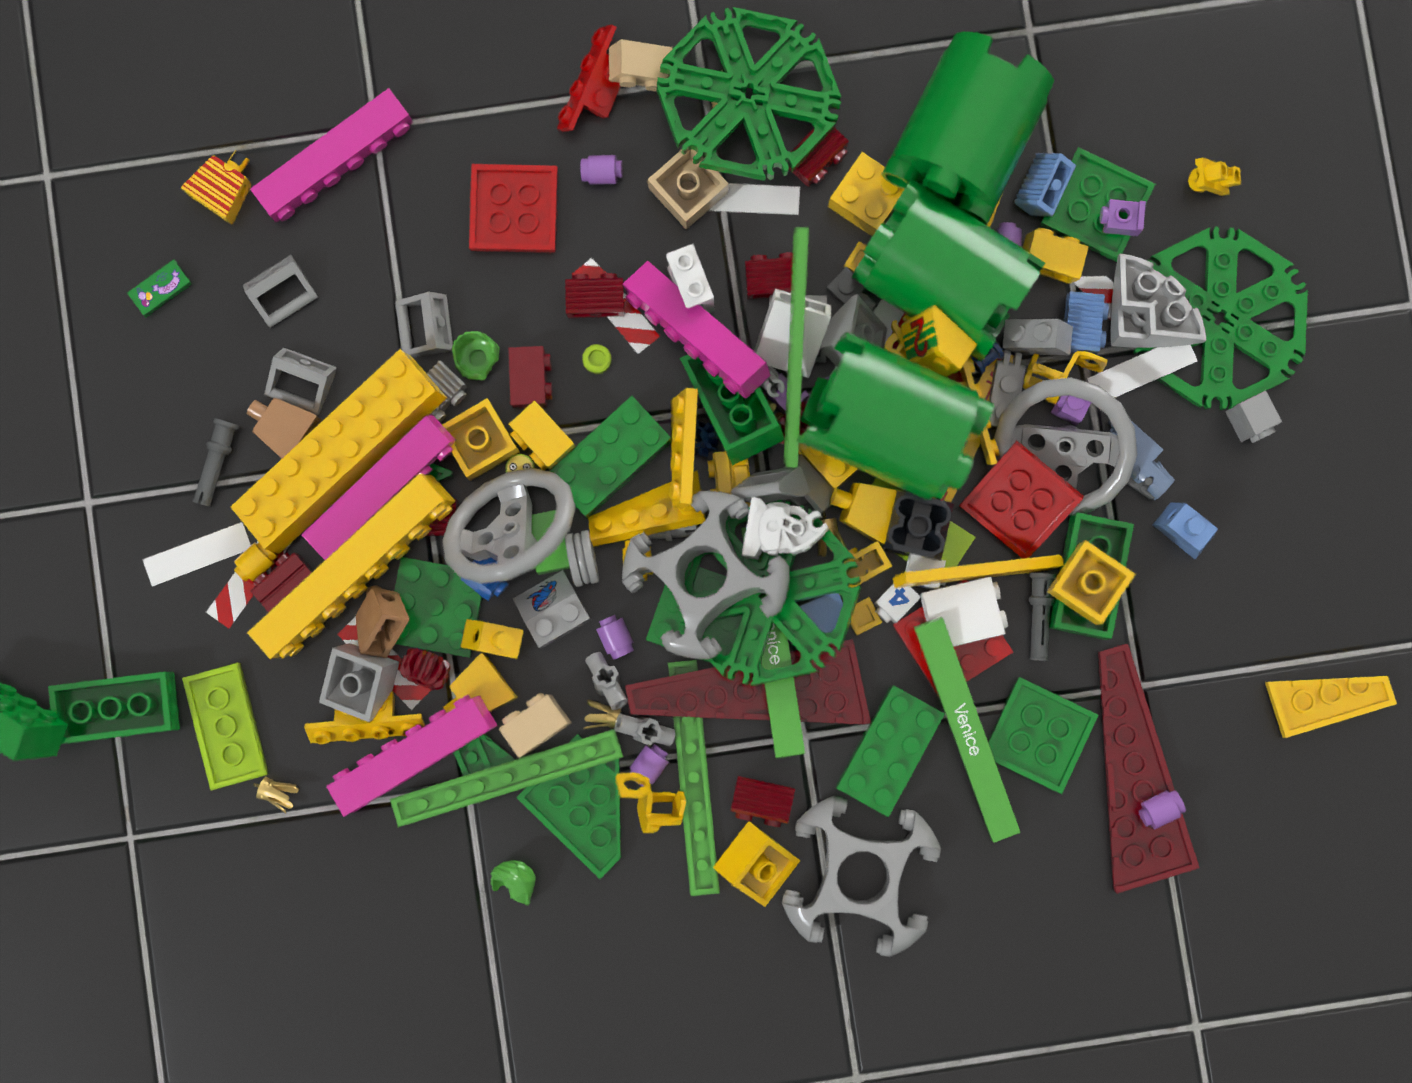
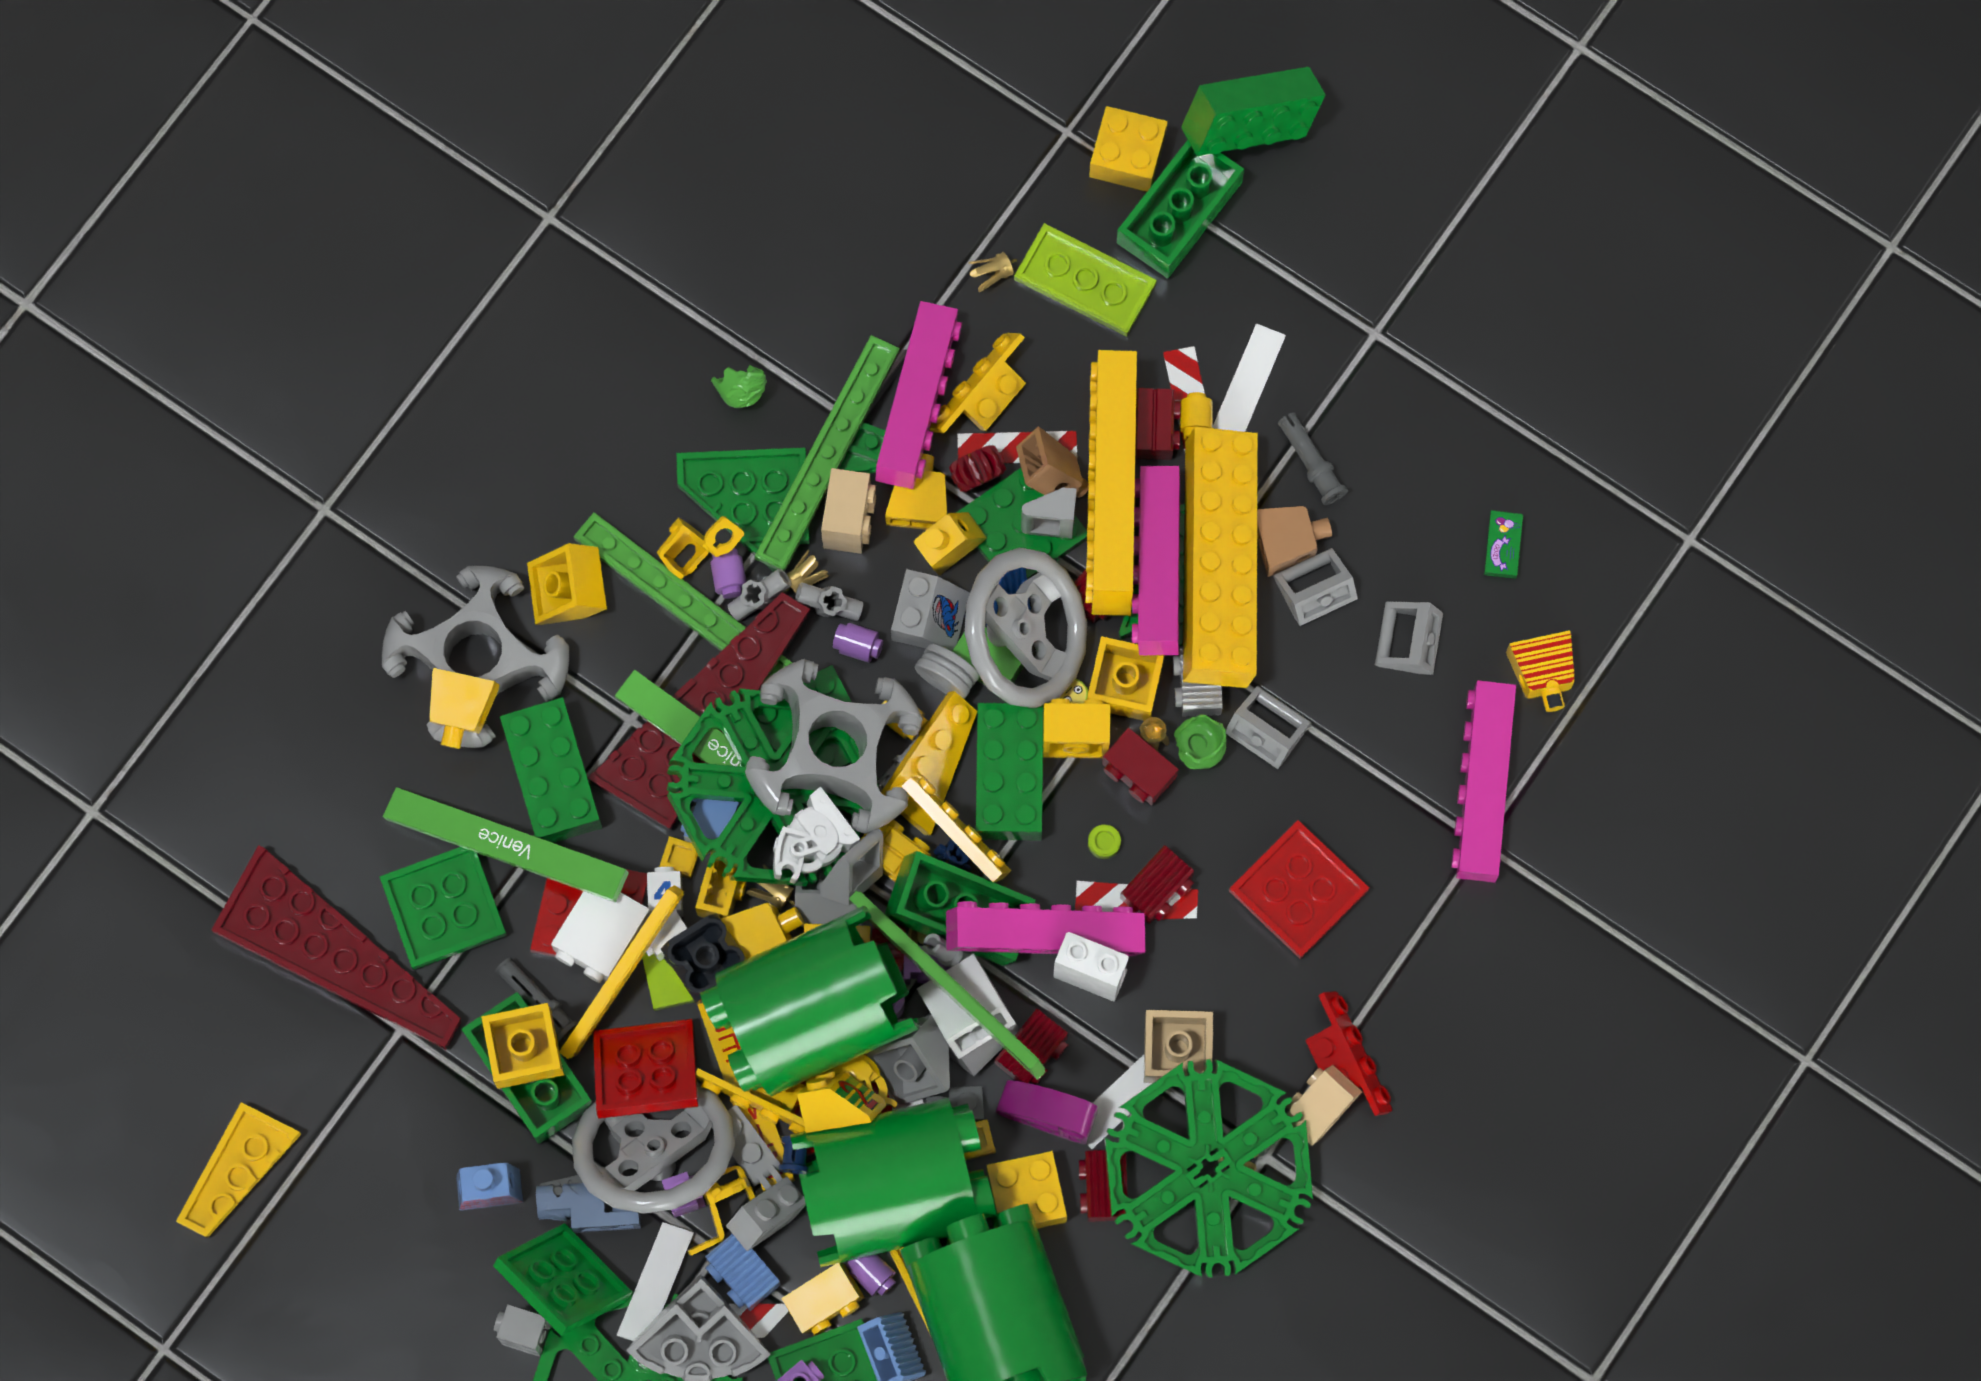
camera: 130 degrees right, 10 degrees down
(104, 782) = (1128, 149): none -> yellow brick
(357, 681) = (1016, 406): light grey slope -> none
(411, 581) = (1050, 514): none -> light grey tile
(497, 389) = (1153, 731): none -> clear yellow piece
(601, 169) = (1263, 992): medium lavender brick -> none
(762, 800) = (612, 636): dark red brick -> none
(799, 210) = (1048, 1110): none -> magenta beam
(909, 847) = (460, 704): none -> yellow torso
(1162, 809) = (287, 939): medium lavender brick -> none
(1203, 420) = (562, 1279): none -> green plate

